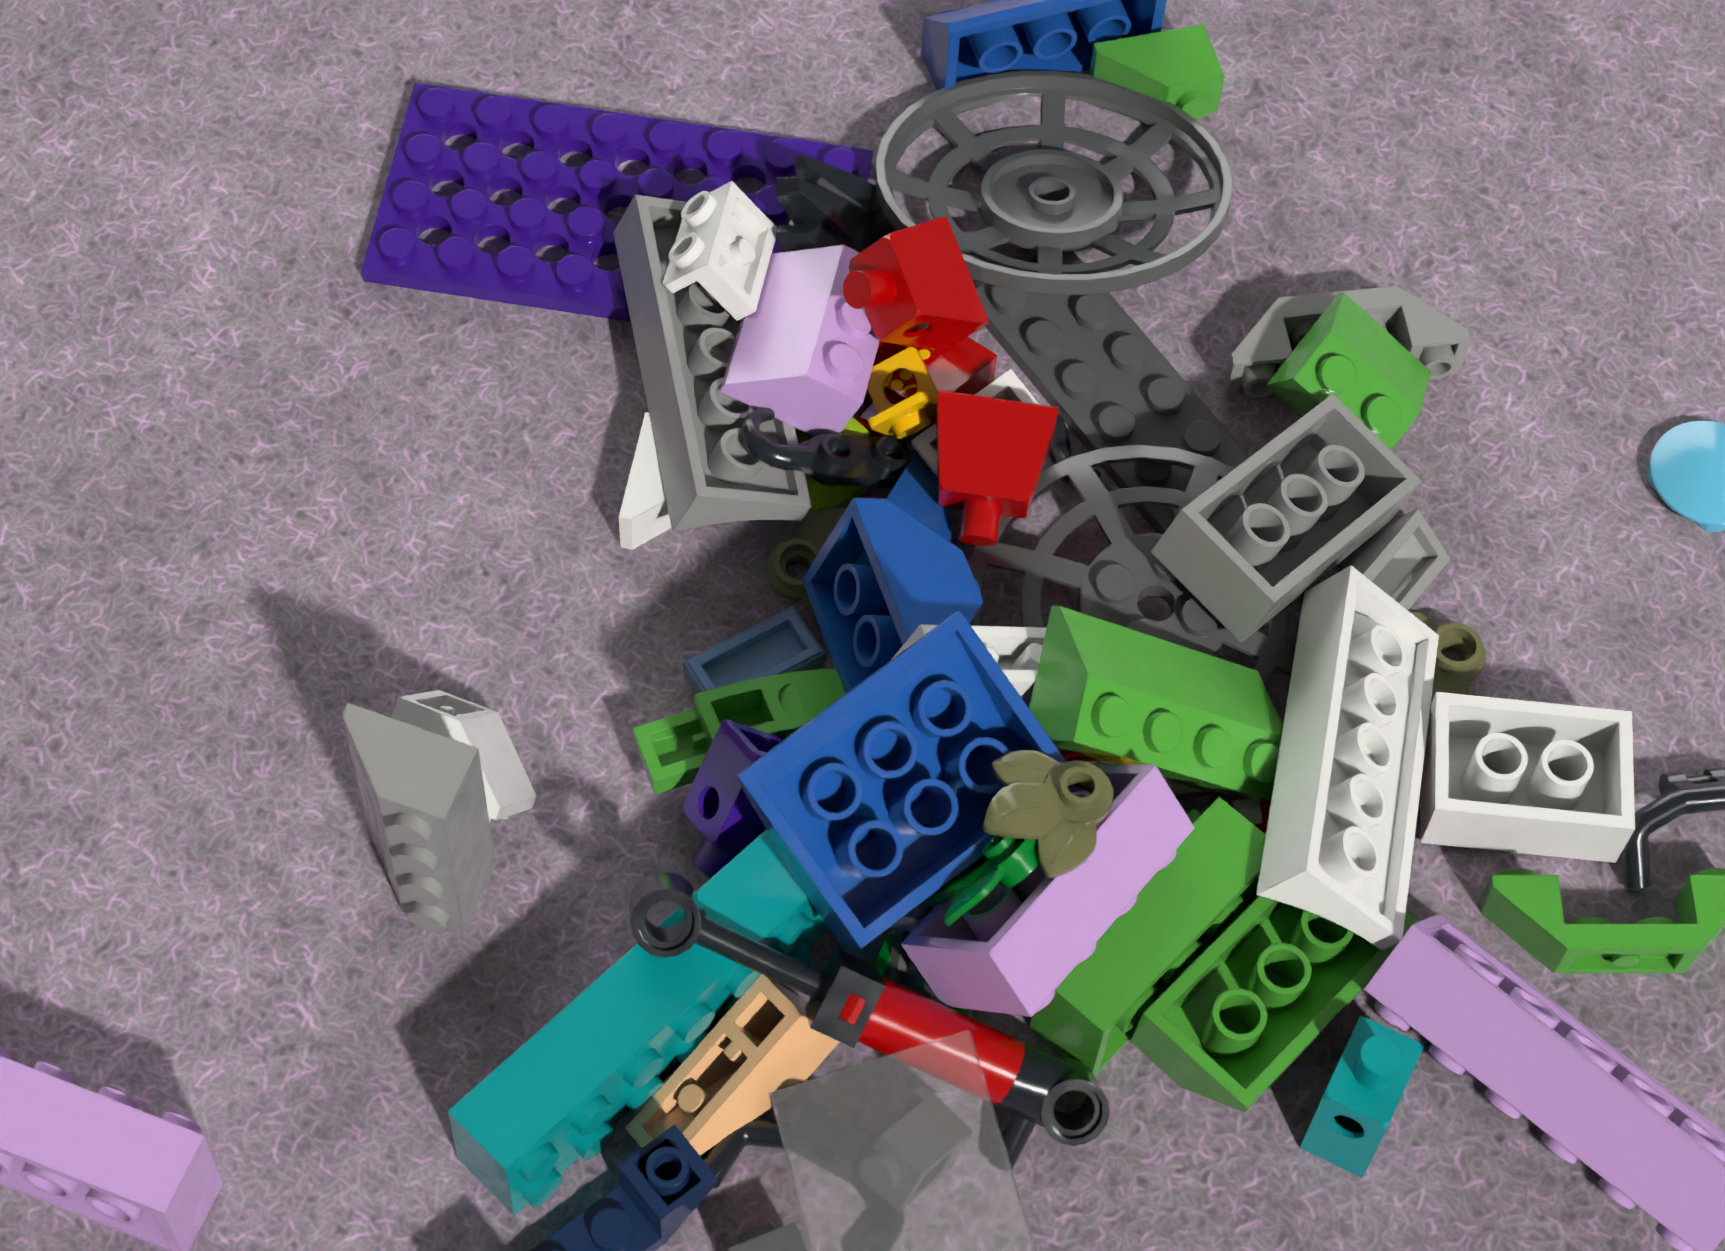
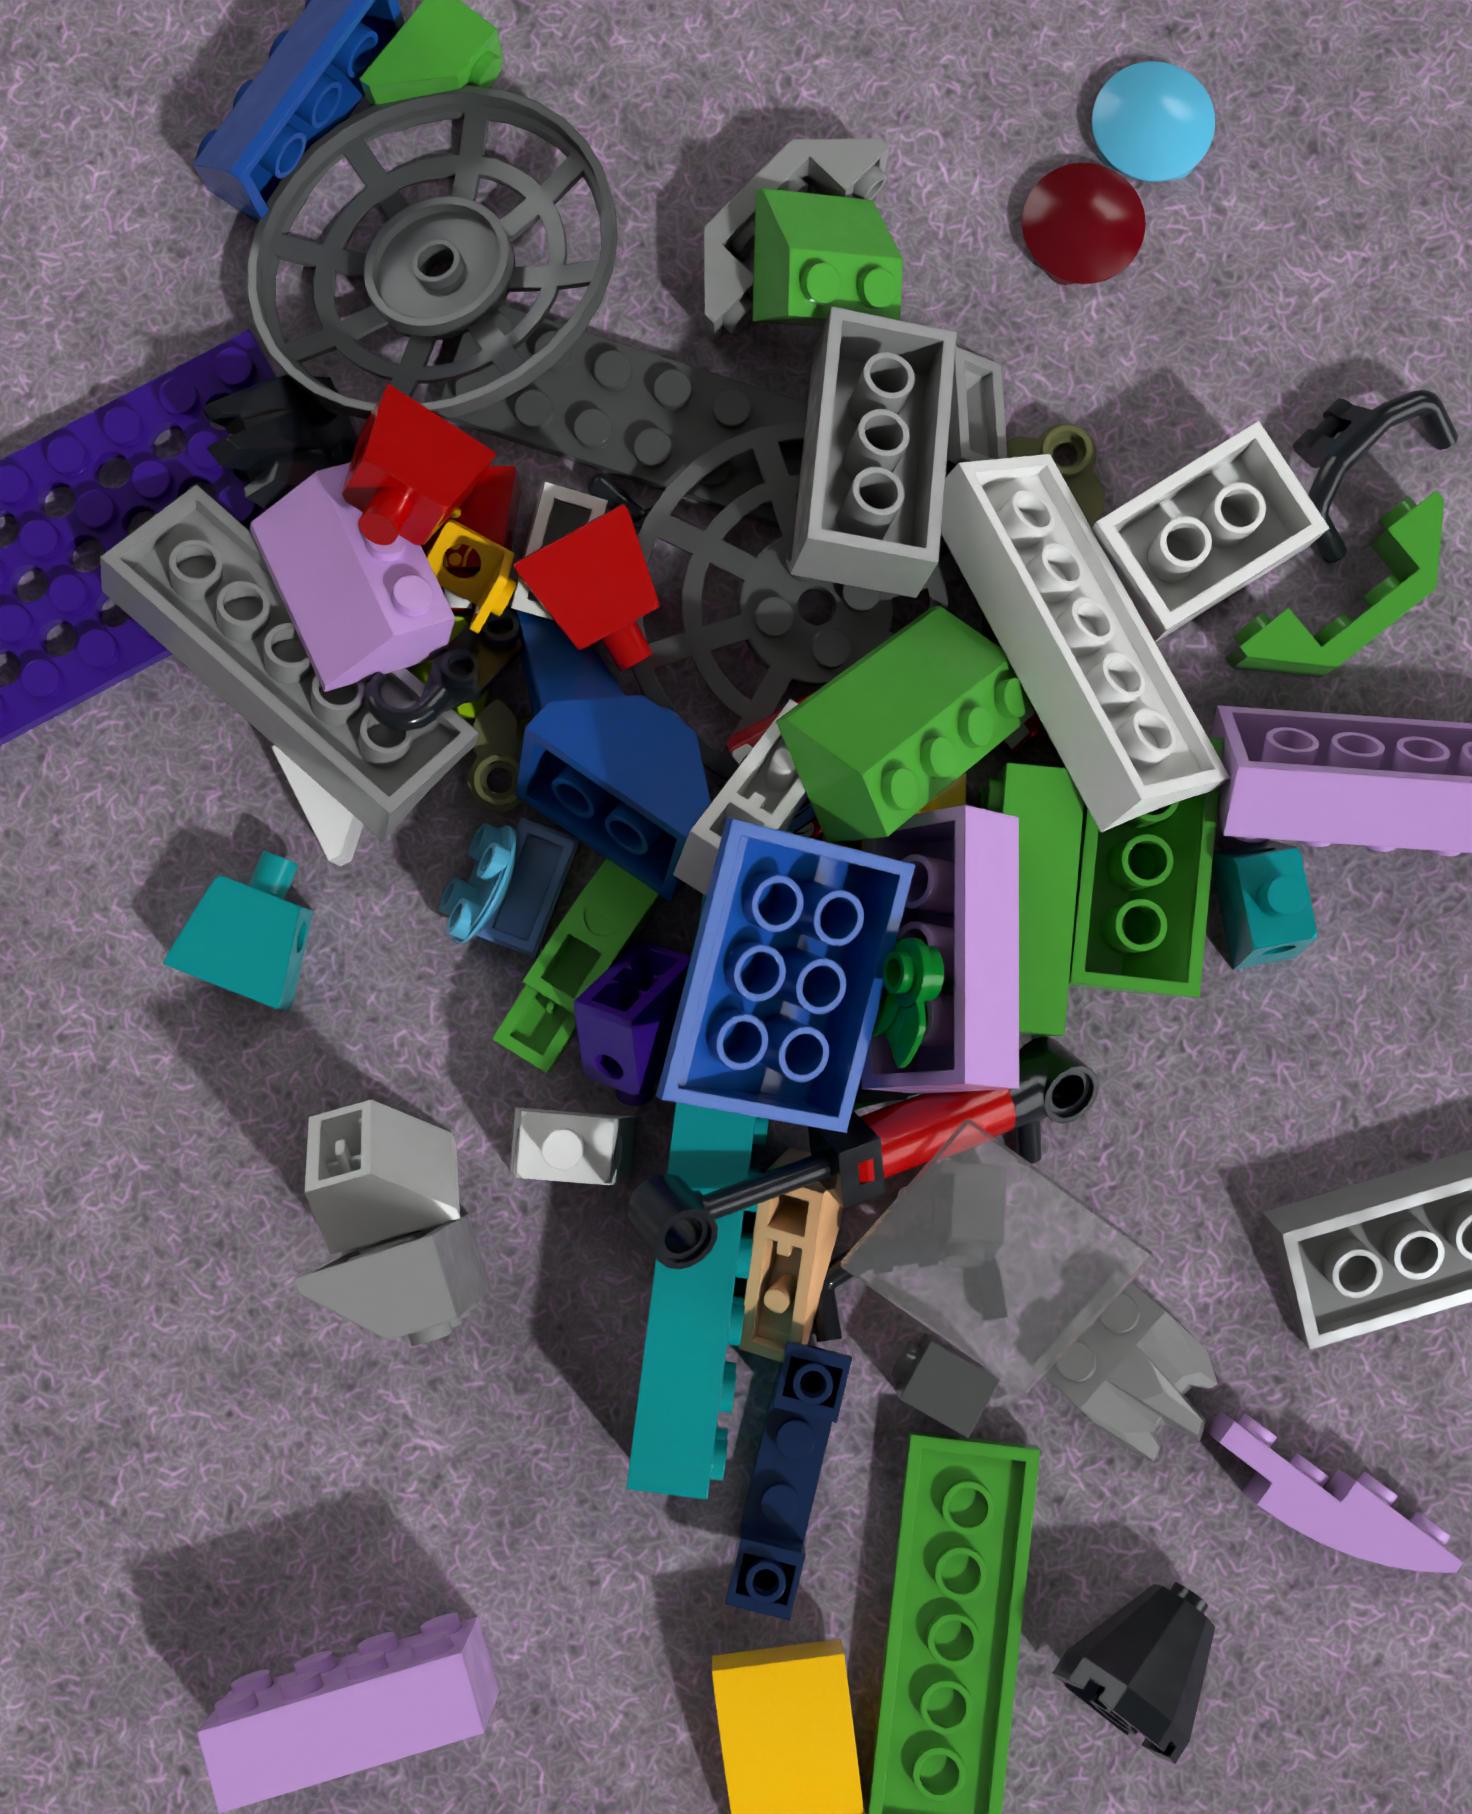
camera: 35 degrees left, 25 degrees up
(508, 535) = (247, 935): none -> teal torso
(618, 845) = (572, 1146): none -> white torso
(699, 631) = (475, 901): none -> medium azure dish
(724, 247) = (217, 554): white bracket -> none
(1043, 808) = (916, 927): olive plate -> none
(1596, 505) = (1083, 223): none -> dark red dish

